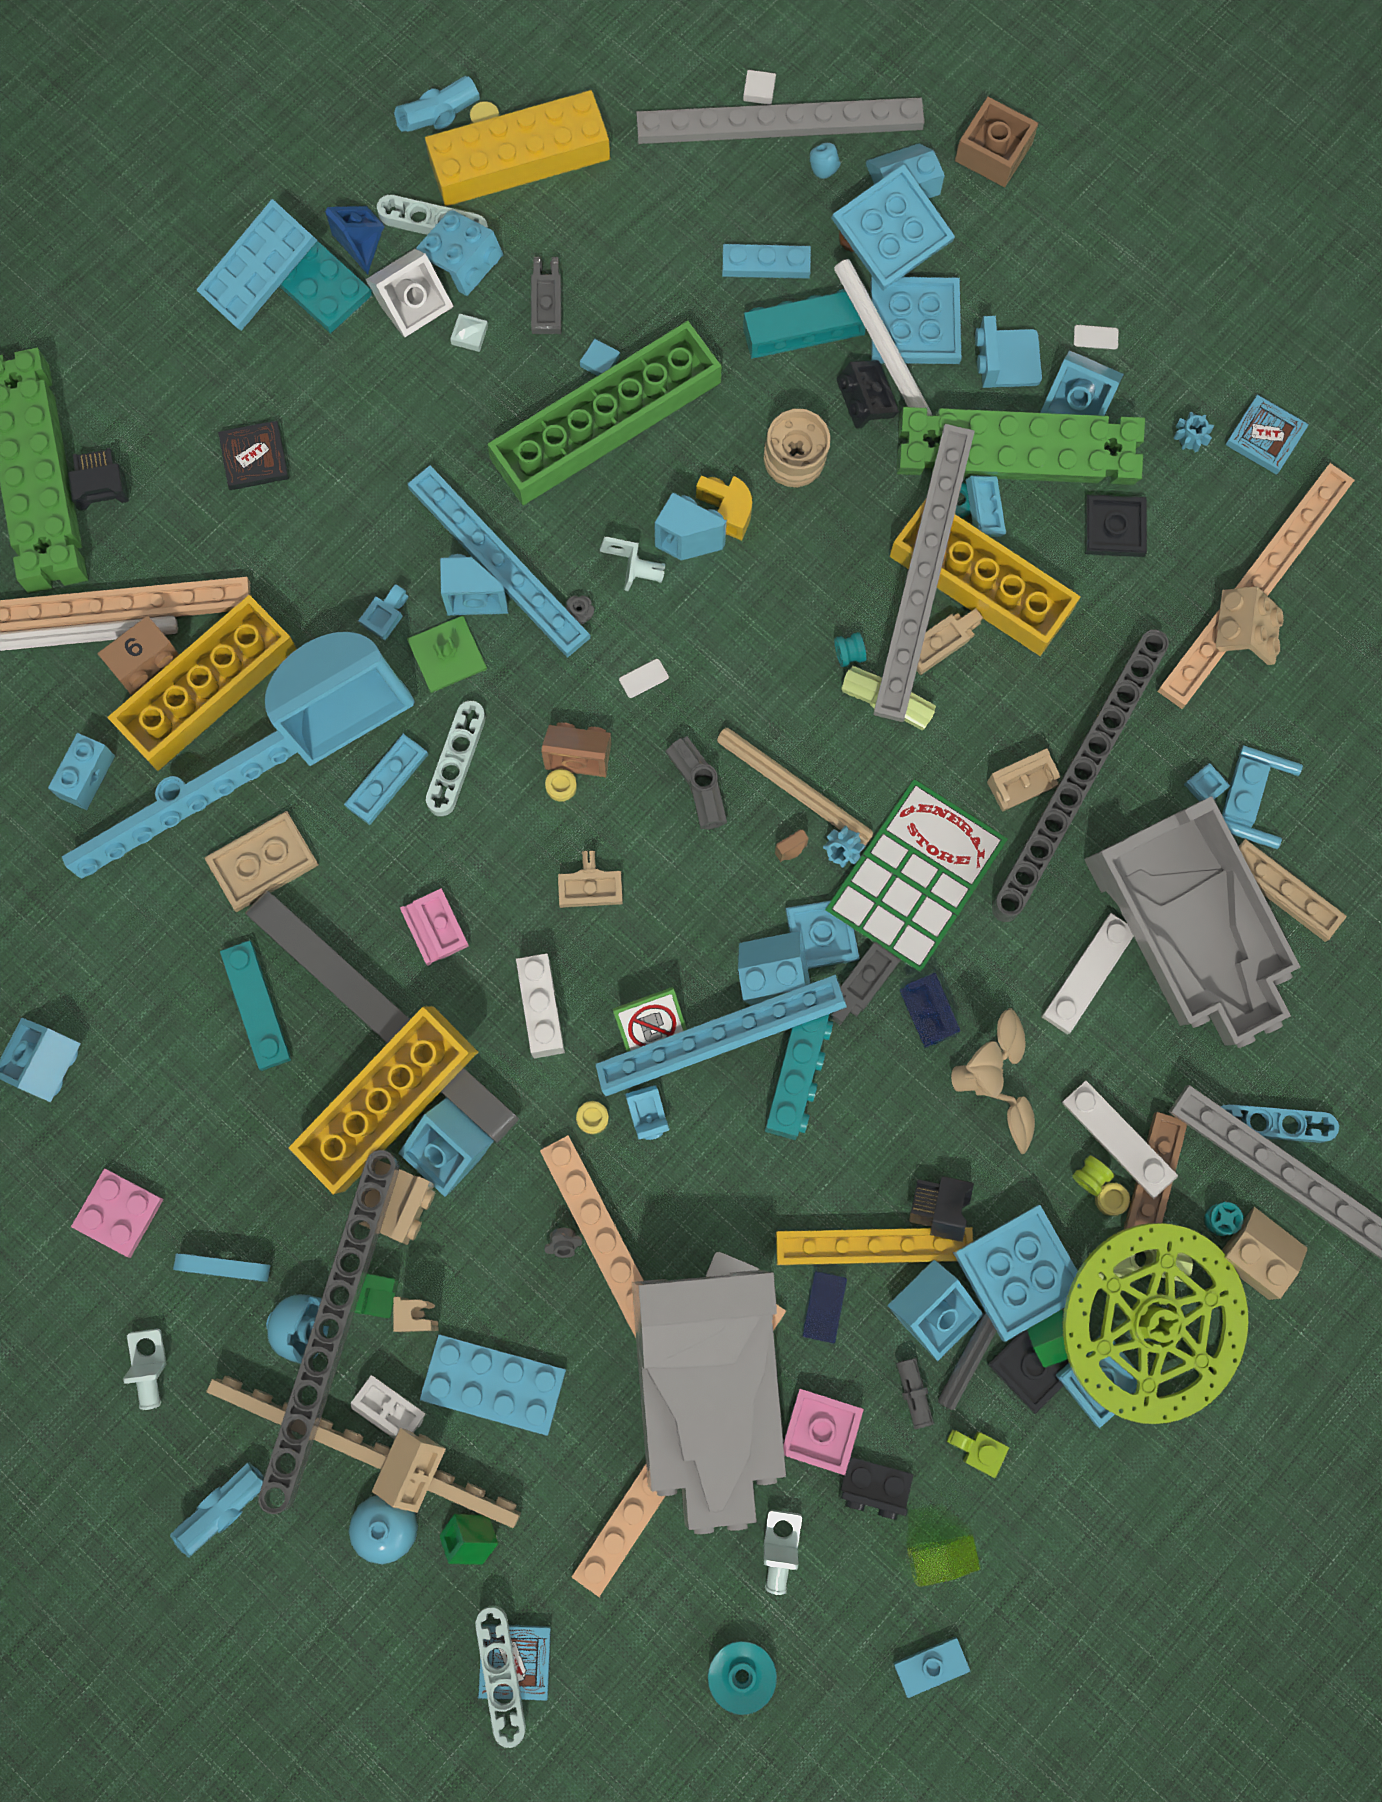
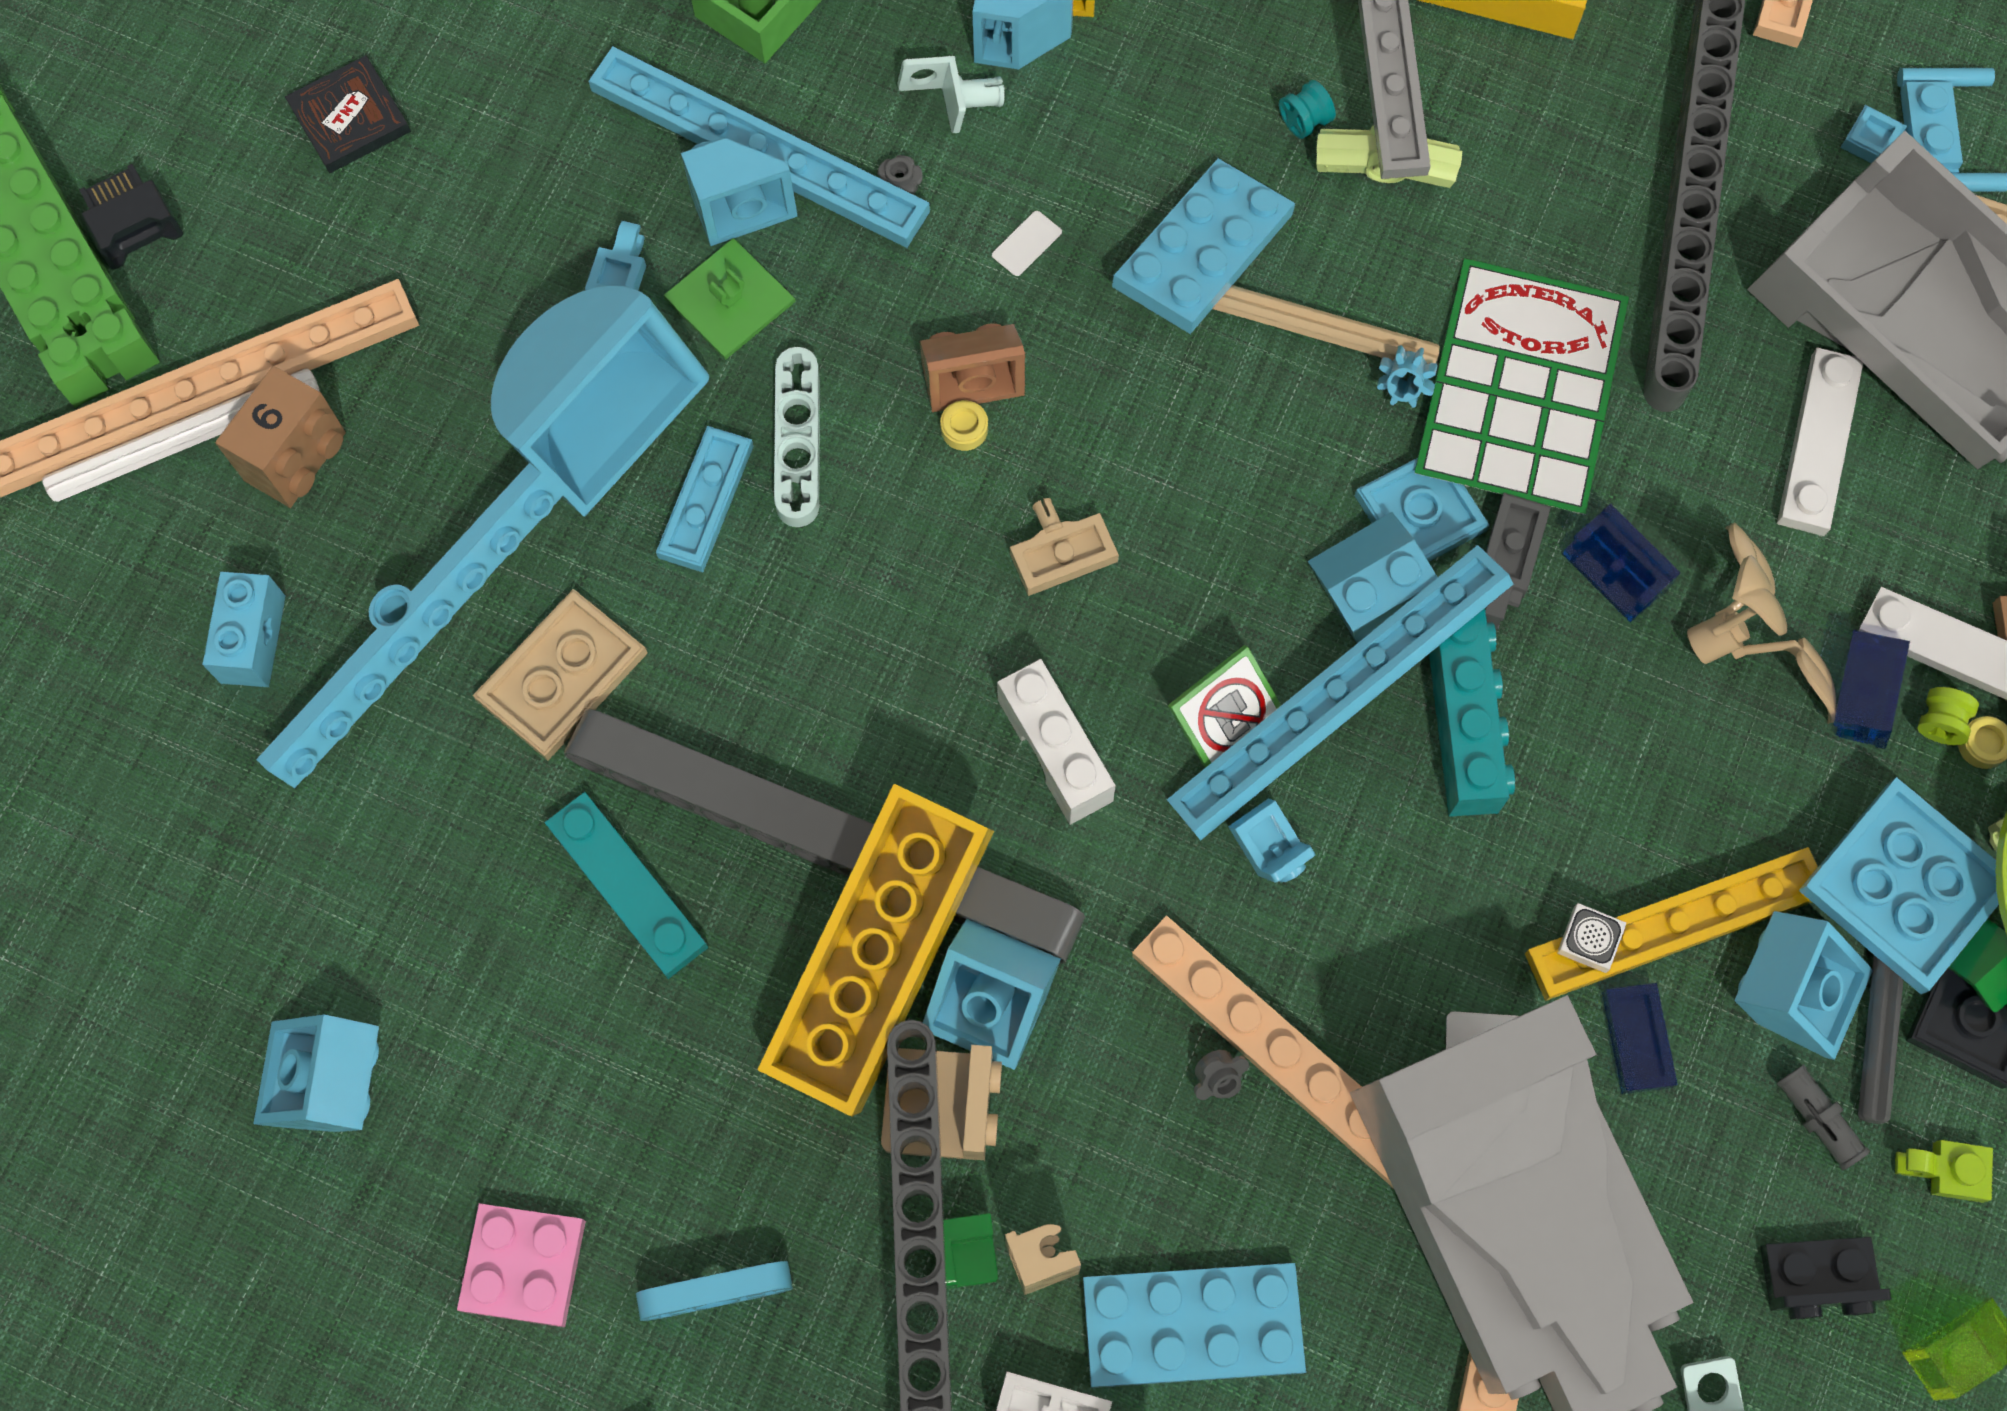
camera: 15 degrees left, 5 degrees down
(203, 682) = (384, 445): yellow brick -> none
(292, 1324) = (861, 1339): medium azure cylinder -> none
(434, 927) = (854, 682): bright pink plate -> none
(592, 1117) = (1190, 879): light yellow tile -> none
(706, 799) = (1183, 374): dark grey piece -> none
(750, 718) = (1203, 245): none -> medium azure plate
(791, 846) = (1331, 400): medium nougat tile -> none
(815, 1238) = (1591, 938): none -> tile
(822, 1431) = (1715, 1219): bright pink plate -> none
(942, 1206) = (1755, 831): black piece -> none
(947, 638) = (1441, 47): tan hinge -> none
(1024, 780) = (1621, 207): tan hinge -> none
(1052, 1142) = (1870, 688): none -> clear blue hinge

